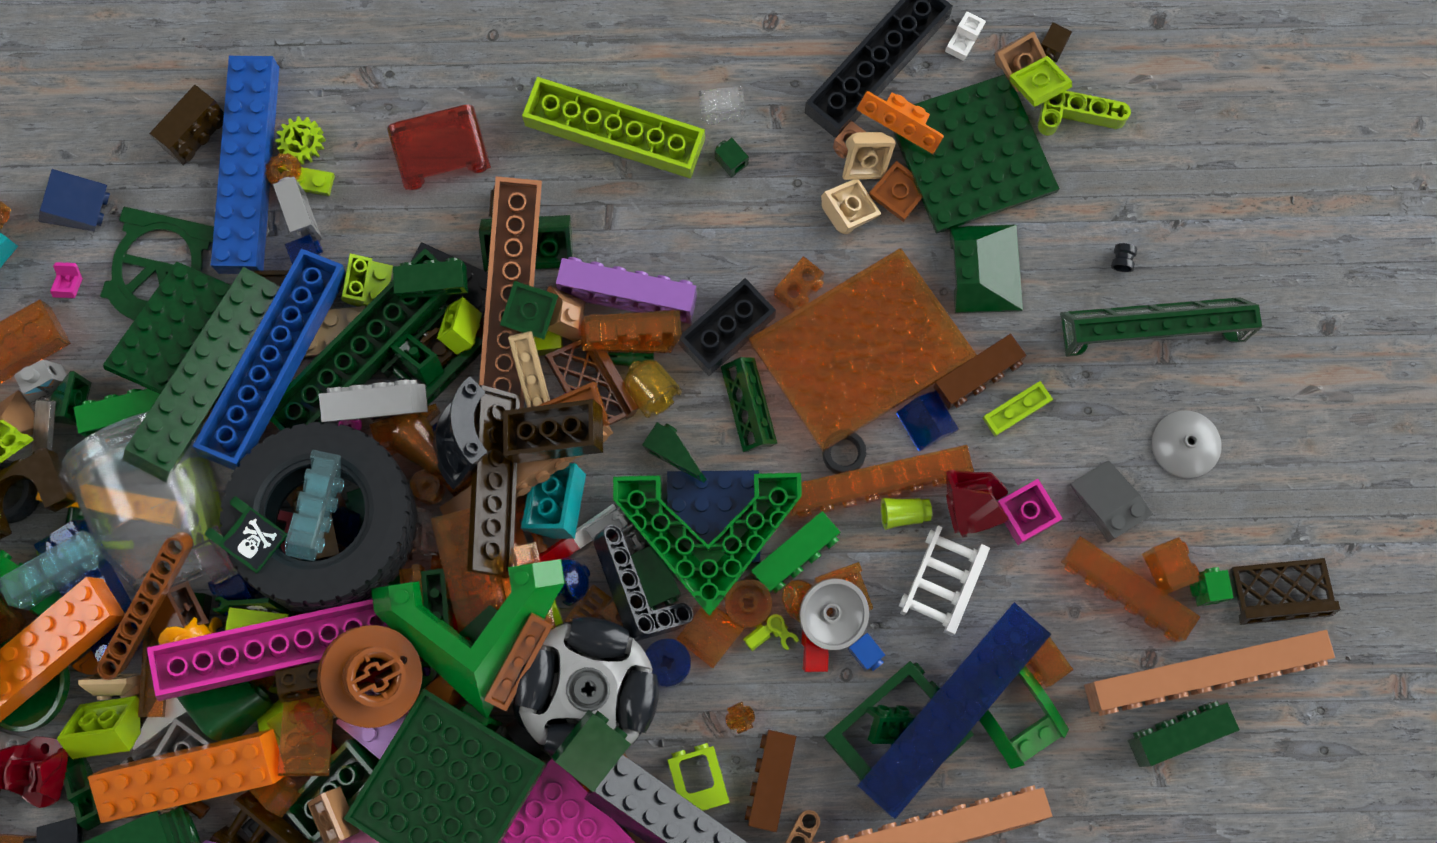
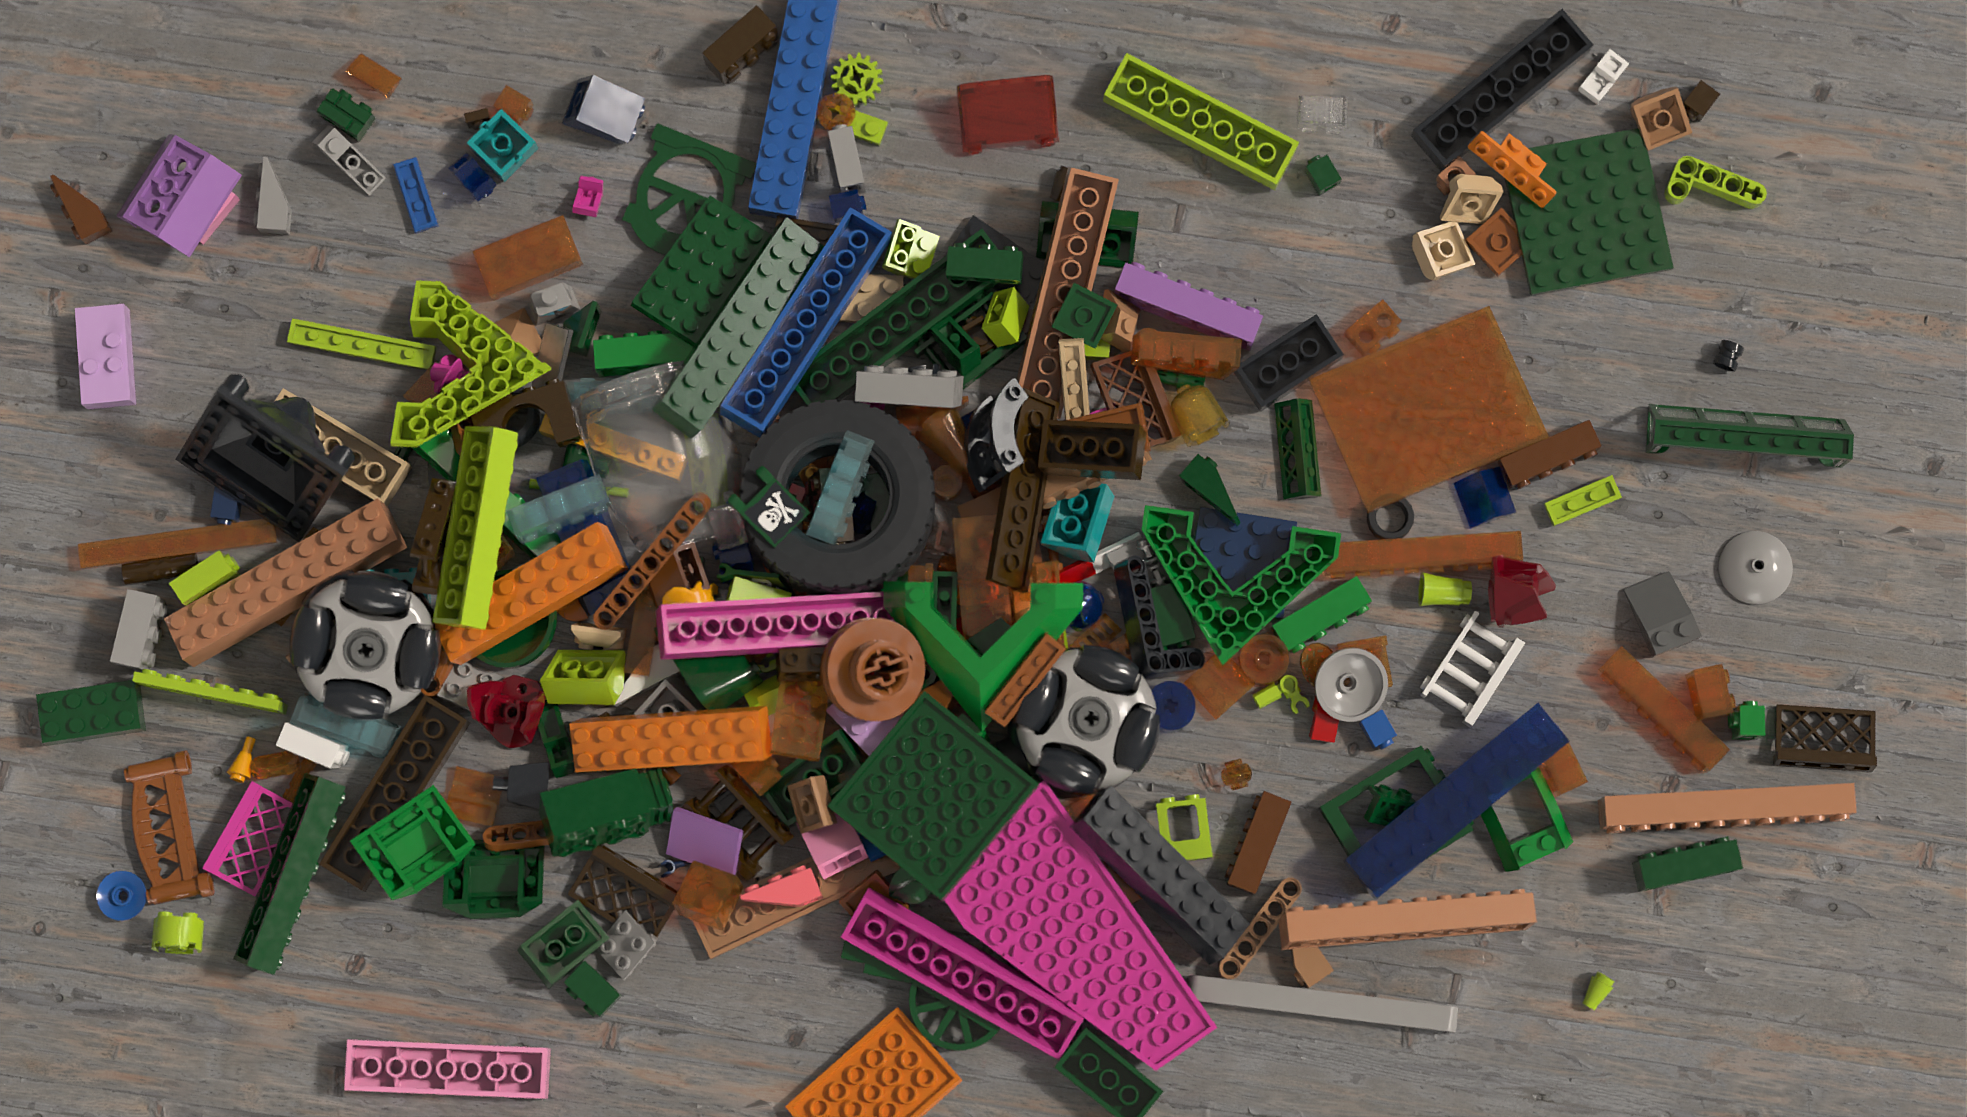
camera: 10 degrees right, 5 degrees up
(591, 749) = (1086, 778): dark green brick -> none
(986, 269) = (1578, 342): dark green slope -> none
(1029, 511) = (1572, 612): dark pink brick -> none
(1041, 81) = (1674, 146): lime plate -> none

